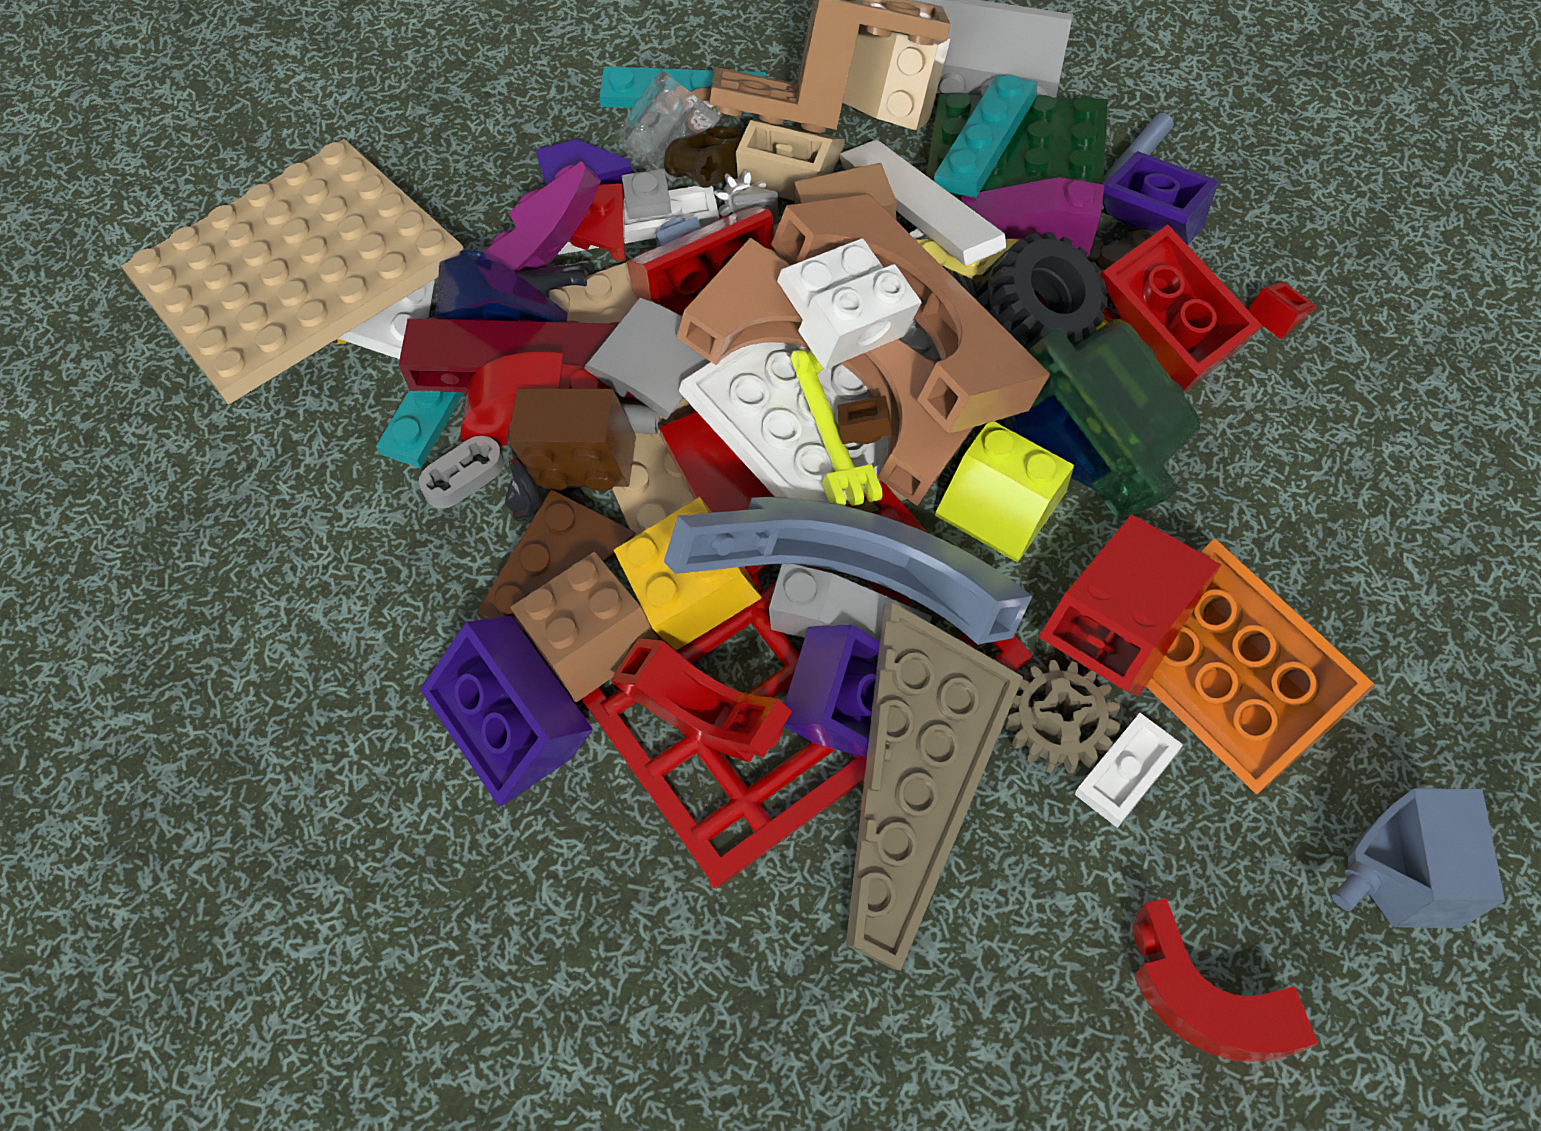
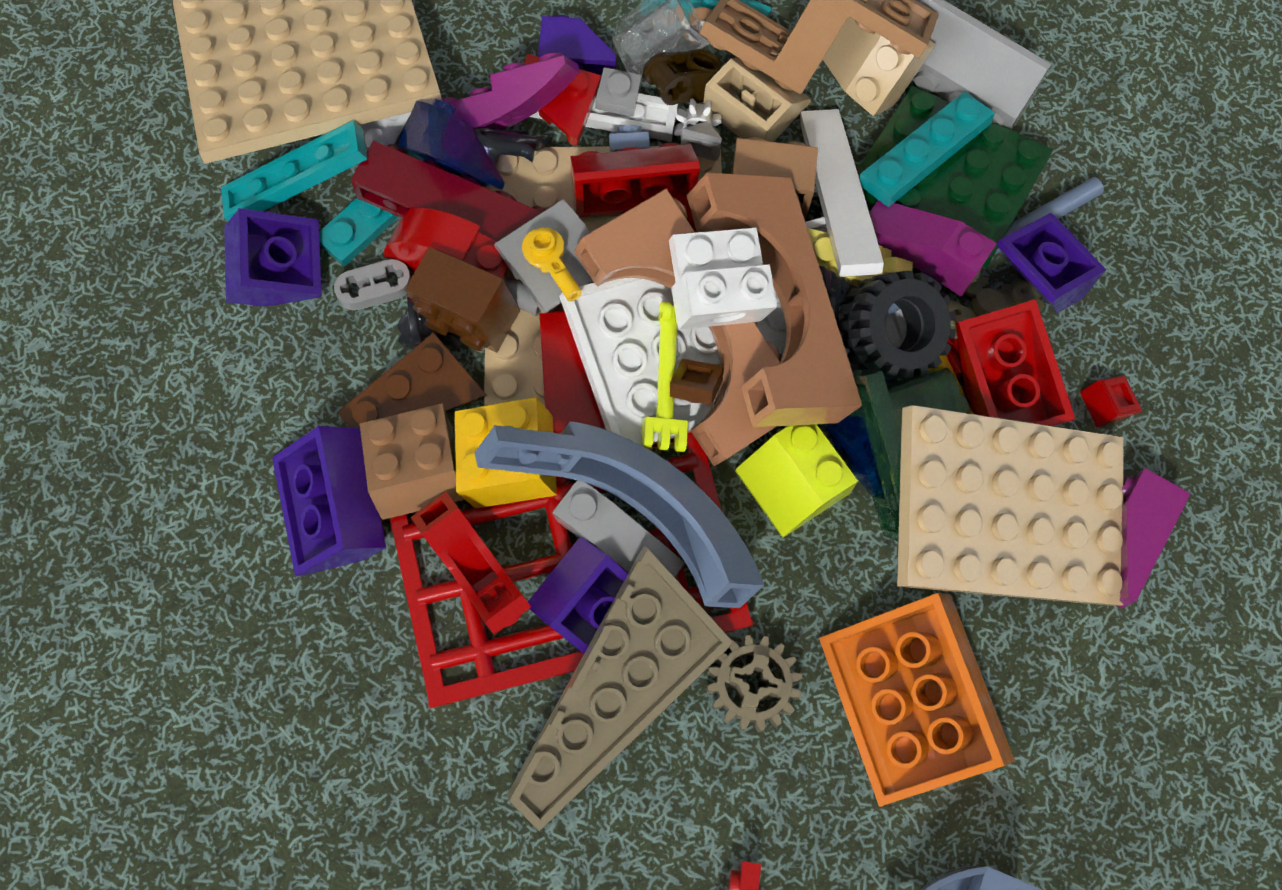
camera: 15 degrees right, 10 degrees up
(329, 386) = (296, 170): none -> teal plate
(337, 482) = (271, 258): none -> dark purple slope
(646, 349) = (544, 251): none -> yellow plate
(1128, 770) = (786, 747): white plate -> none
(1130, 604) = (844, 619): red slope -> none
(1244, 430) = (1009, 508): none -> tan plate
(1378, 412) = (1148, 518): none -> magenta slope

